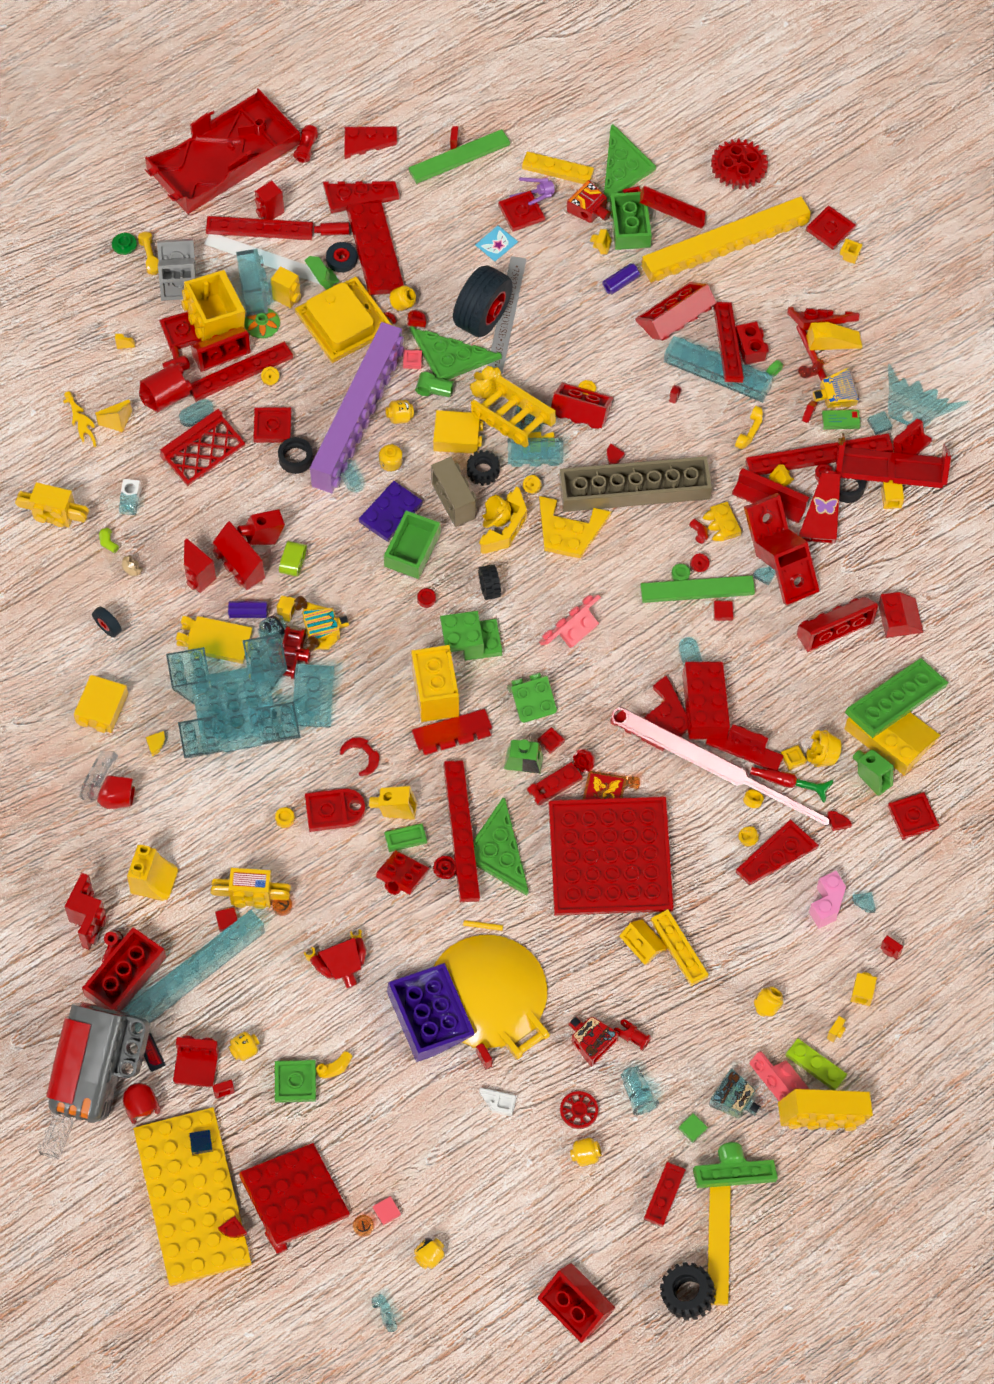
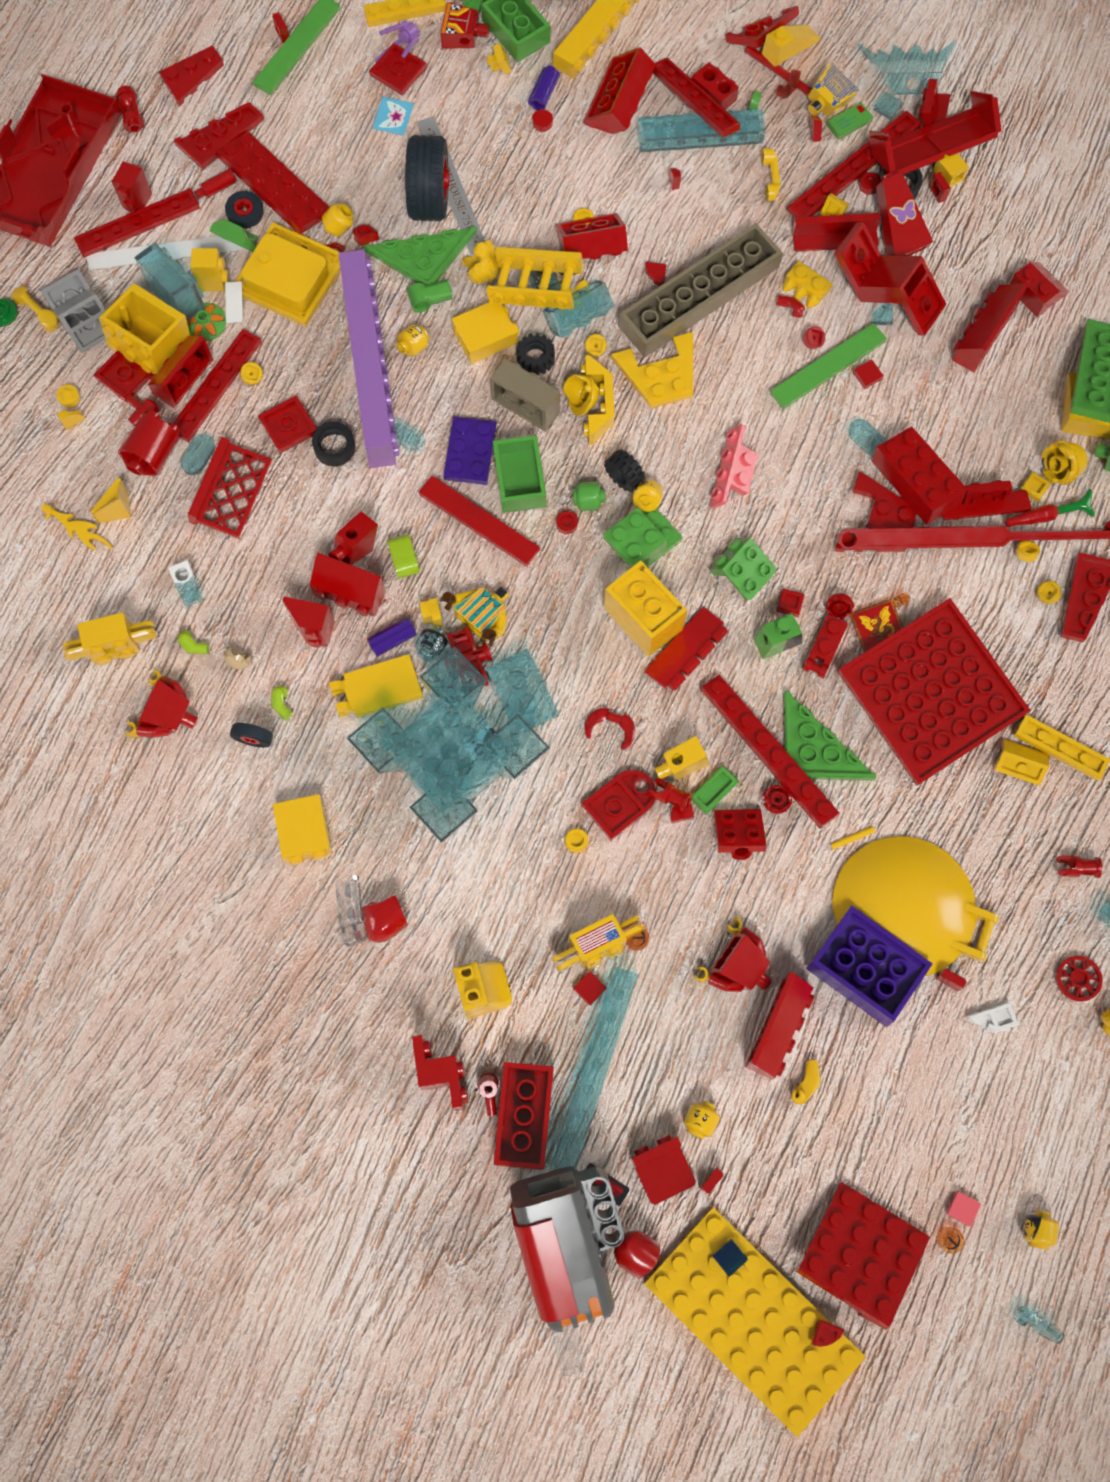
camera: 30 degrees left, 10 degrees up
(58, 573) = (163, 710): none -> red torso
(132, 325) = (68, 396): none -> yellow tile
(139, 612) = (277, 702): none -> lime arm
(155, 742) = (387, 837): yellow tile -> none
(291, 319) = (233, 296): none -> white sticker
(295, 1081) = (778, 1125): bright green plate -> none
(339, 1014) = (779, 1027): none -> red slope
(364, 563) = (479, 521): none -> red tile
(370, 821) = (671, 795): none -> red piece
(372, 838) = (678, 816): none -> red tile
(390, 457) = (435, 393): yellow head -> none
(412, 359) = (387, 279): coral tile -> none
(453, 587) = (589, 496): none -> bright green head
(495, 608) = (648, 495): none -> yellow head
(592, 1038) = (1044, 895): torso -> none
(604, 302) = (542, 120): none -> red tile
(680, 572) = (801, 358): bright green tile -> none
(873, 504) = (939, 187): none -> red tile

